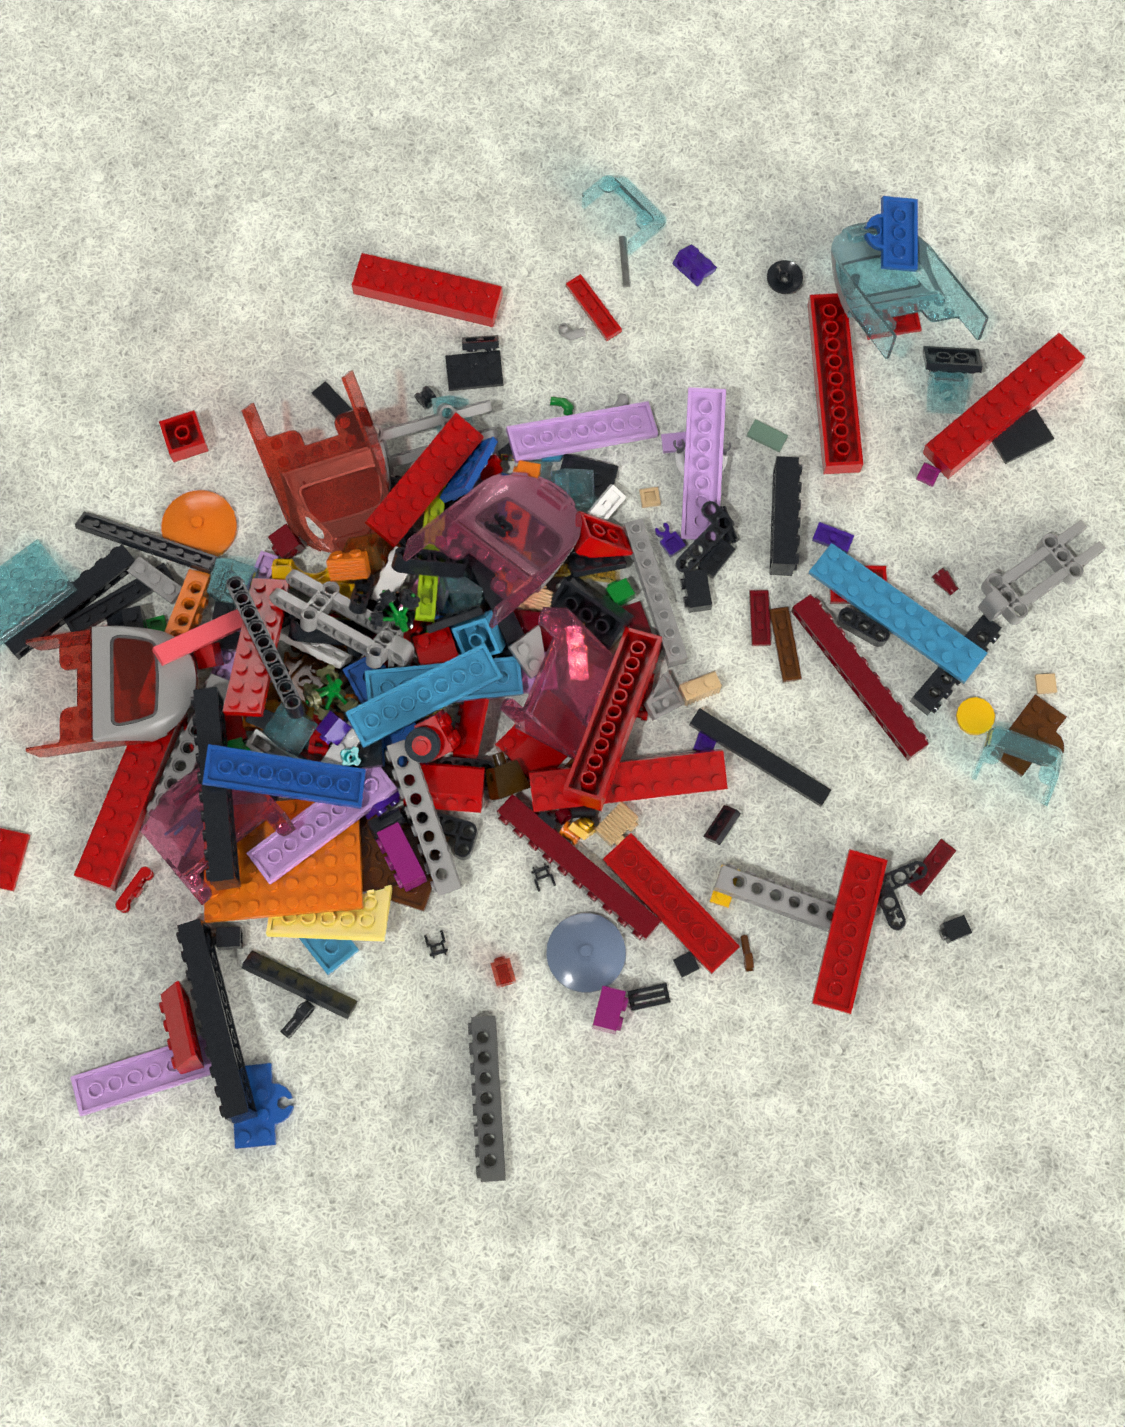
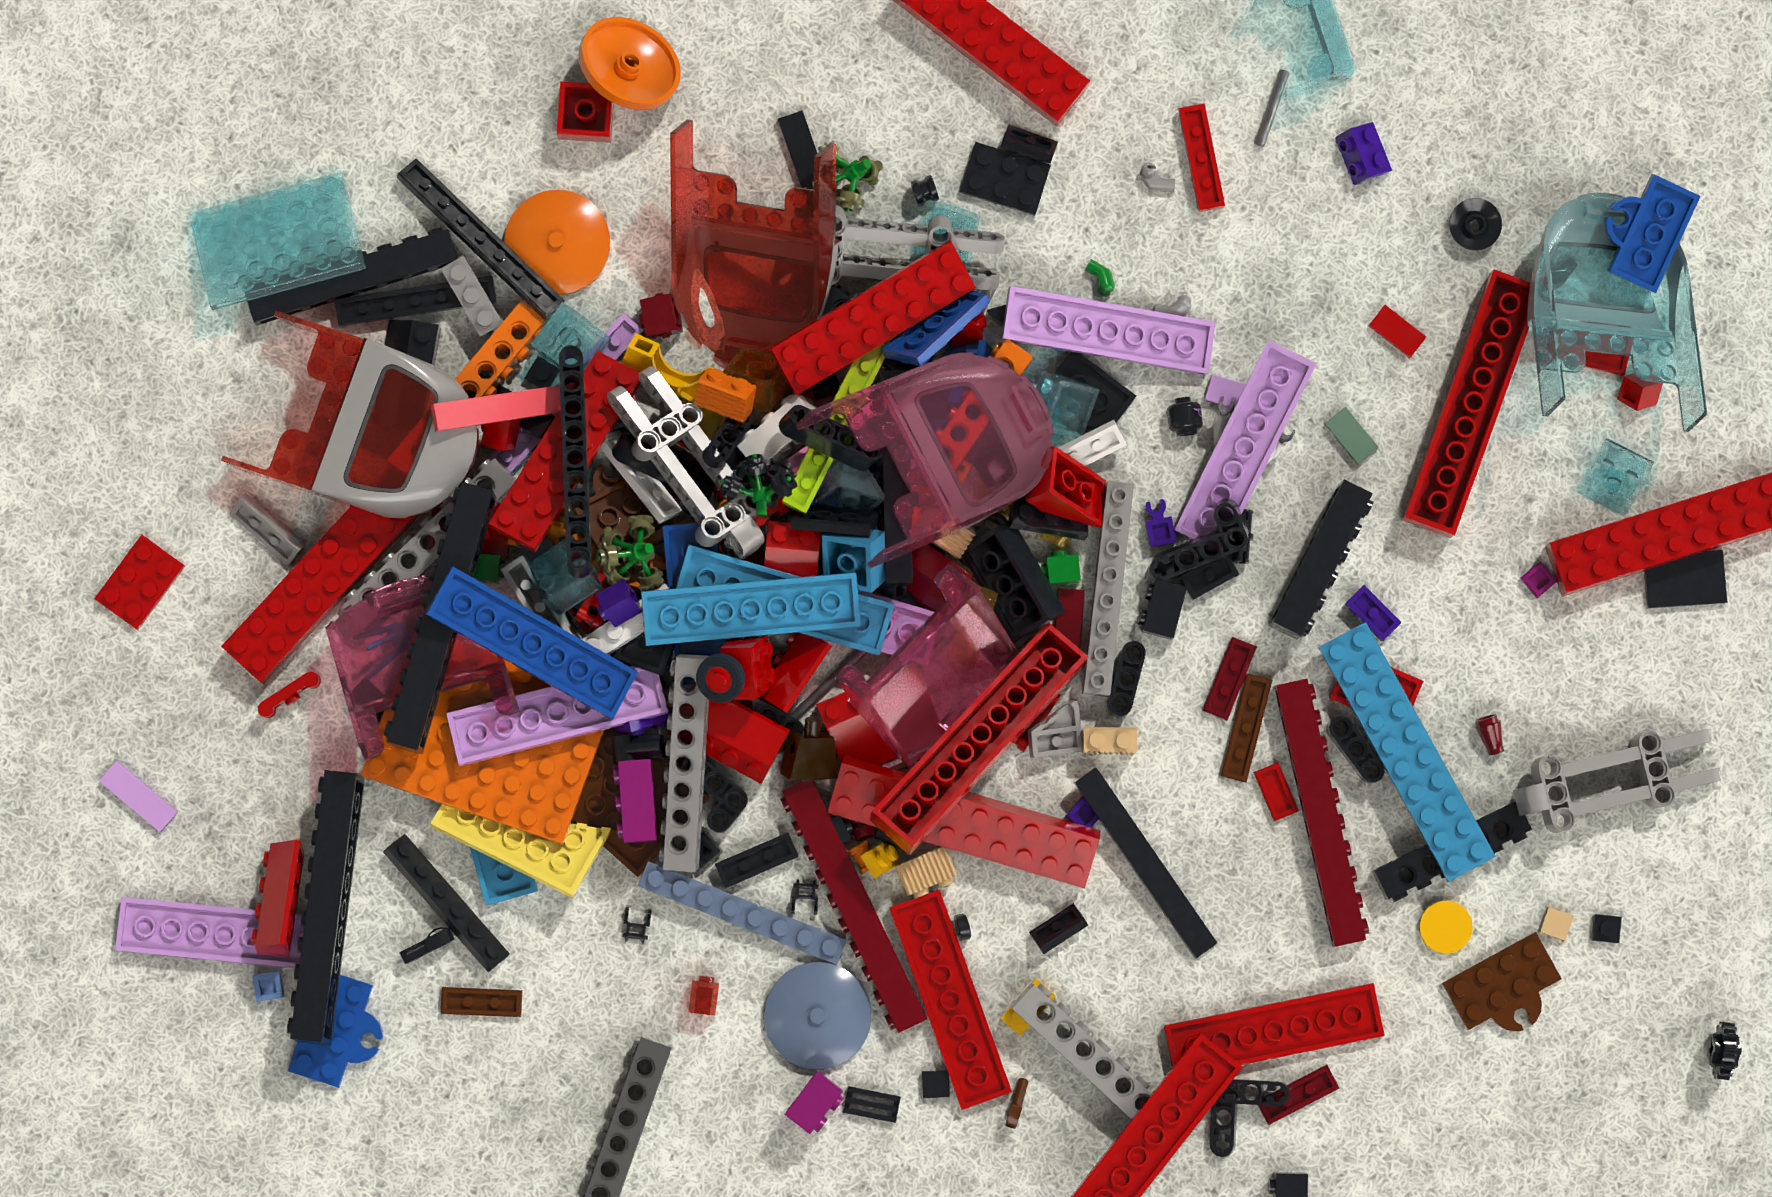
camera: 15 degrees right, 10 degrees up
(56, 1003) = (138, 796): none -> lavender tile
(76, 787) = (266, 529): none -> light grey plate
(157, 623) = (450, 356): green tile -> none
(198, 1095) = (268, 986): none -> medium blue plate
(199, 393) = (629, 63): none -> orange dish
(228, 938) = (381, 806): black brick -> none
(345, 753) = (625, 642): plate -> none
(351, 1042) = (481, 1002): none -> reddish brown tile
(379, 401) = (865, 169): none -> plant
(464, 873) = (708, 850): none -> black tile
(495, 737) = (825, 686): none -> flat silver bar
(496, 528) = (932, 423): black piece -> none
(499, 866) = (756, 860): none -> black plate
(504, 905) = (742, 913): none -> sand blue plate
(529, 651) = (909, 605): light grey wing -> none
(649, 497) = (1159, 454): tan tile -> none
(655, 467) = (1184, 417): none -> black head
(657, 851) = (962, 927): none -> black tile
(693, 636) = (1132, 667): none -> black beam
(766, 361) = (1397, 331): none -> red tile
(823, 676) = (1276, 791): none -> red tile
(902, 824) = (1285, 1026): none -> red plate
(935, 334) = (1639, 393): none -> red panel
(952, 359) = (1643, 437): black plate -> none
(1002, 740) = (1483, 999): clear light blue windscreen -> none
(1079, 673) = (1606, 928): none -> black plate

